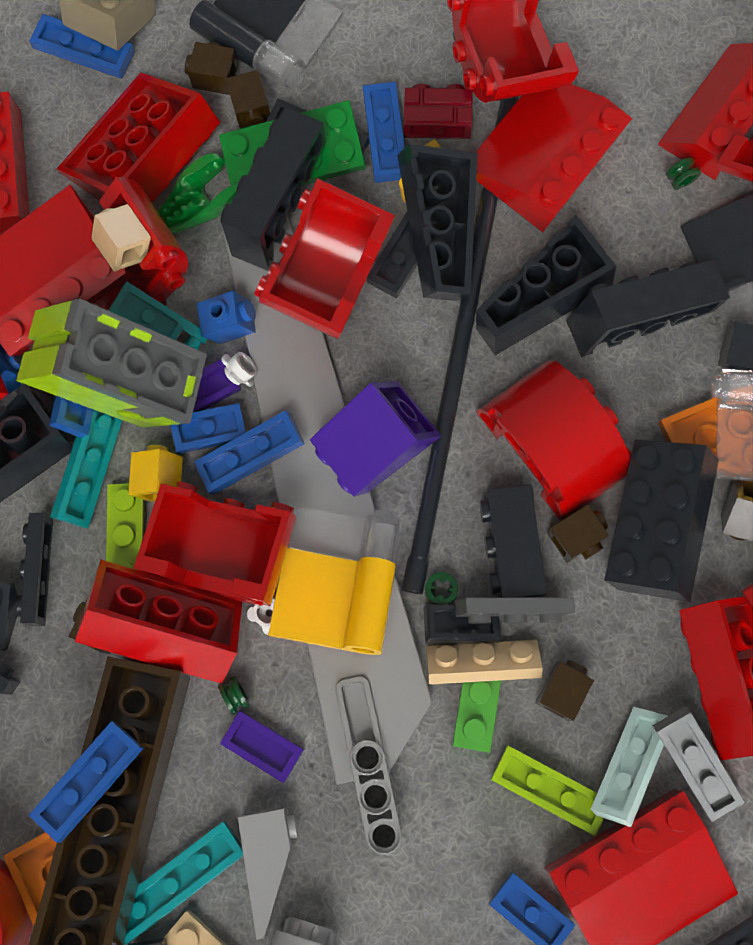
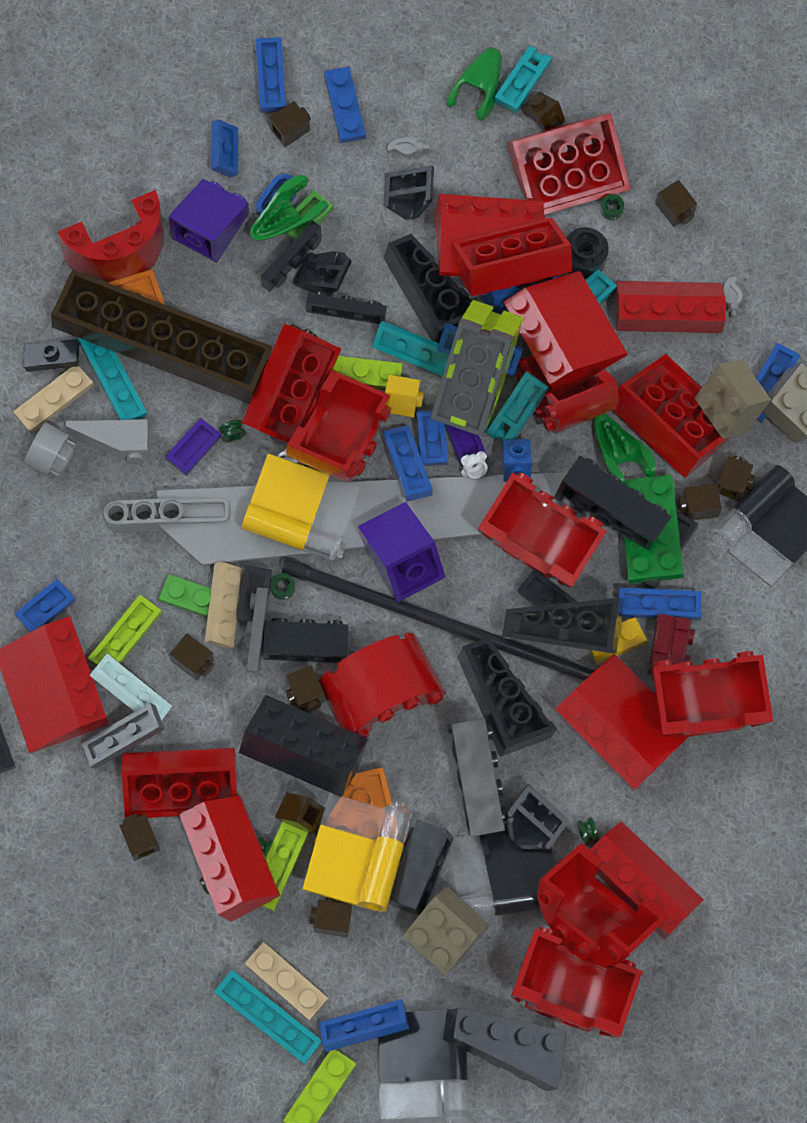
camera: 90 degrees right, 5 degrees down
(85, 782) = (189, 321): blue plate -> none
(113, 69) = (732, 398): none -> dark tan brick
(120, 237) = (571, 379): tan brick -> none
(691, 230) = (534, 821): none -> black slope

